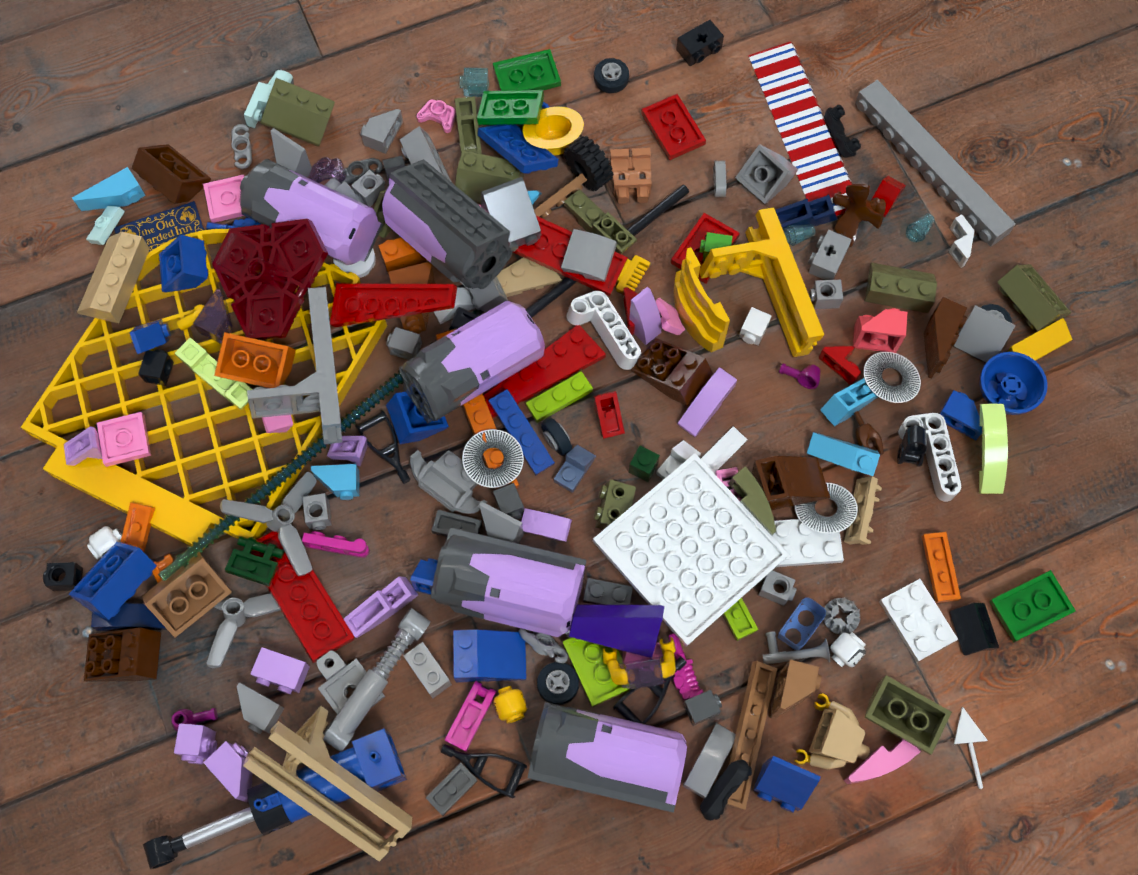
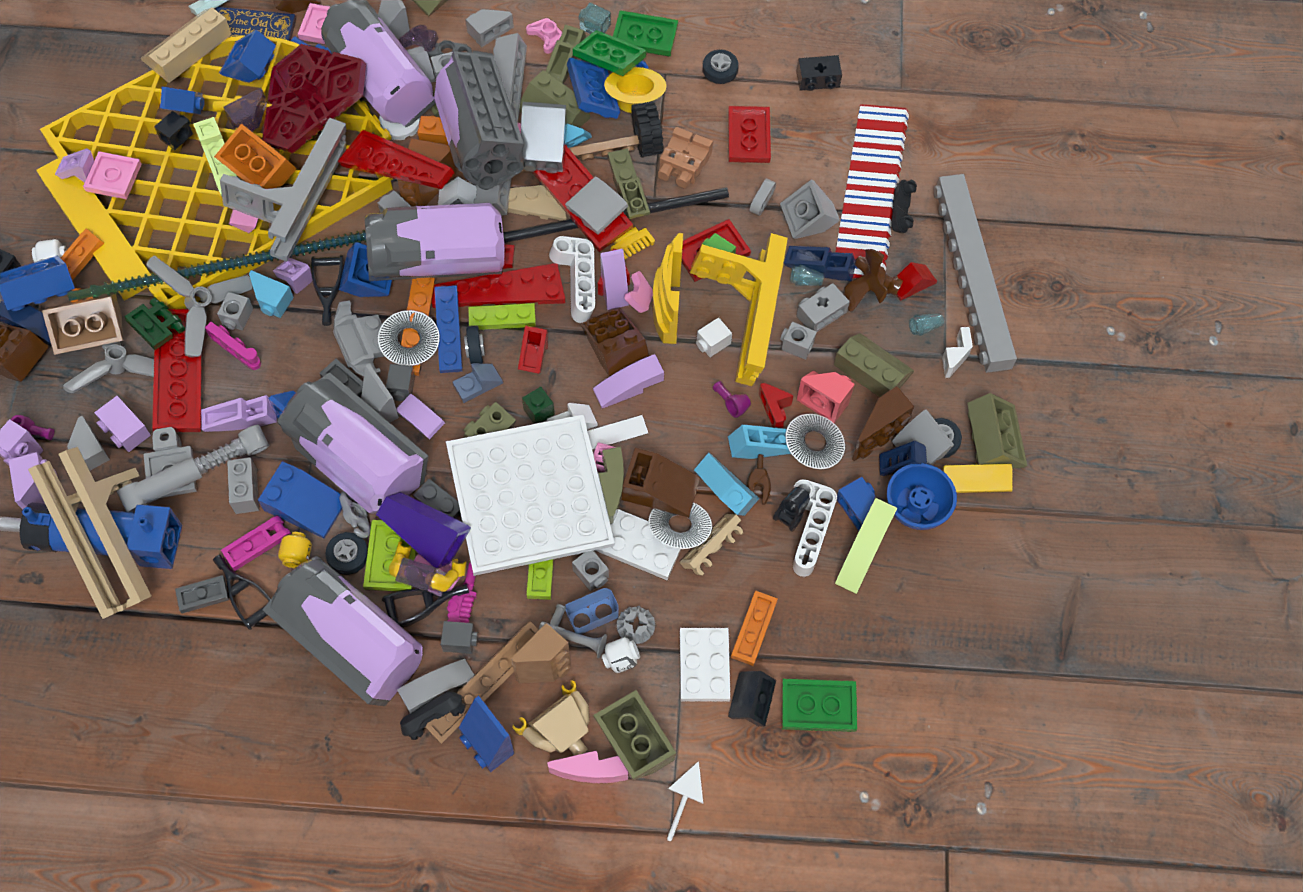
camera: 25 degrees right, 5 degrees down
(986, 349) = (916, 455): none -> dark blue slope

